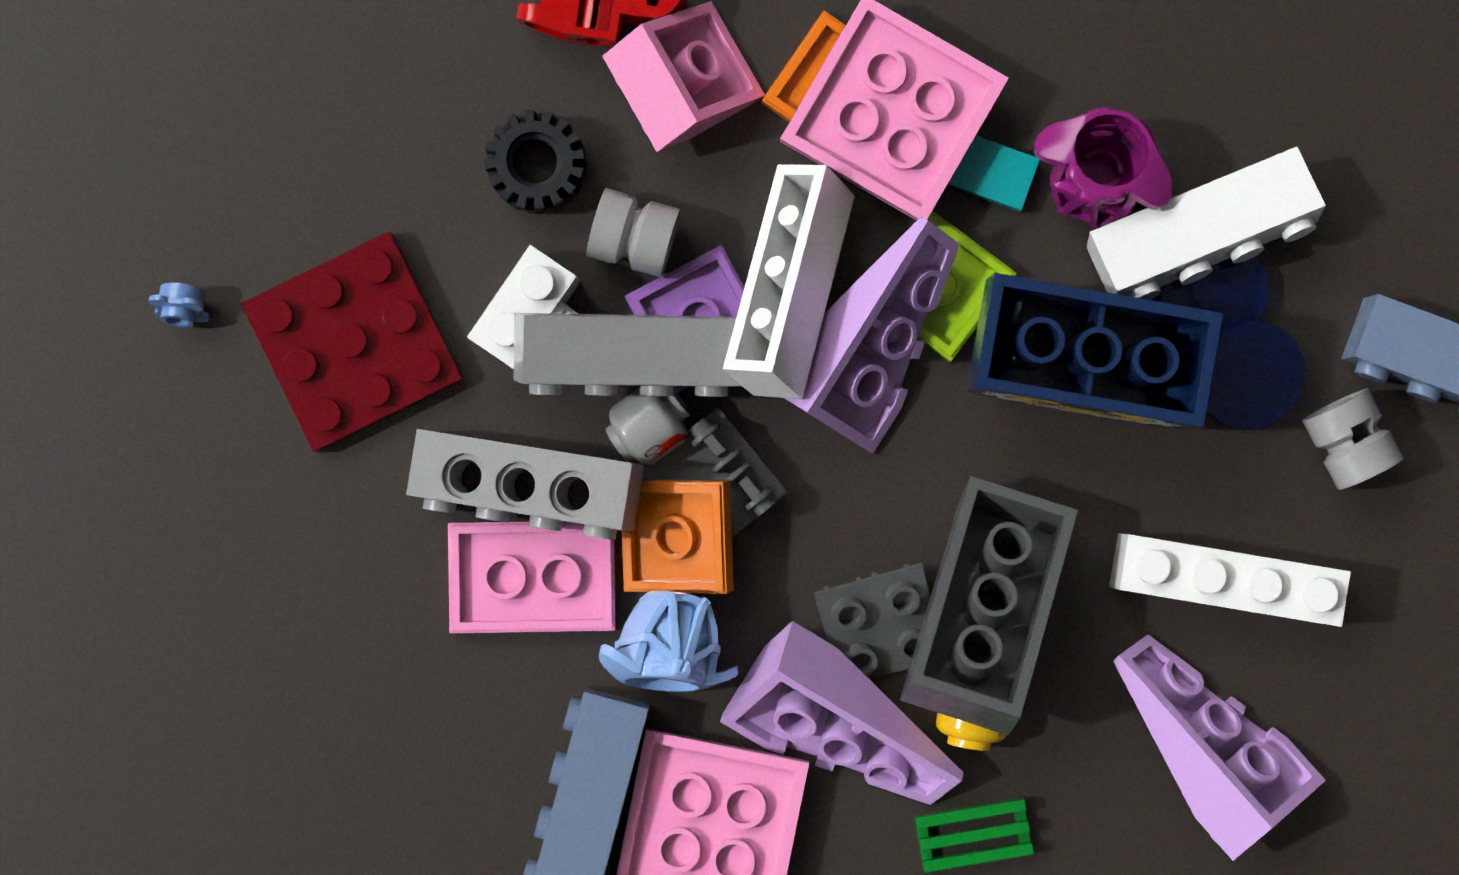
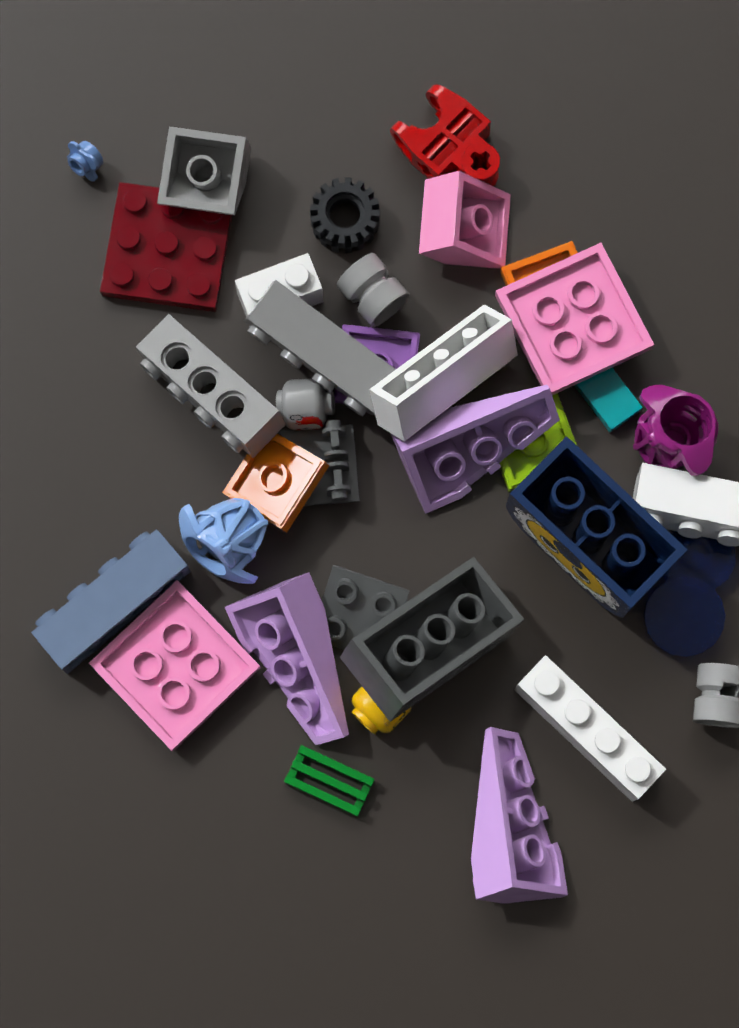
camera: 35 degrees right, 10 degrees down
(336, 228) = (204, 171): none -> light grey slope
(529, 579) = (173, 449): bright pink tile -> none

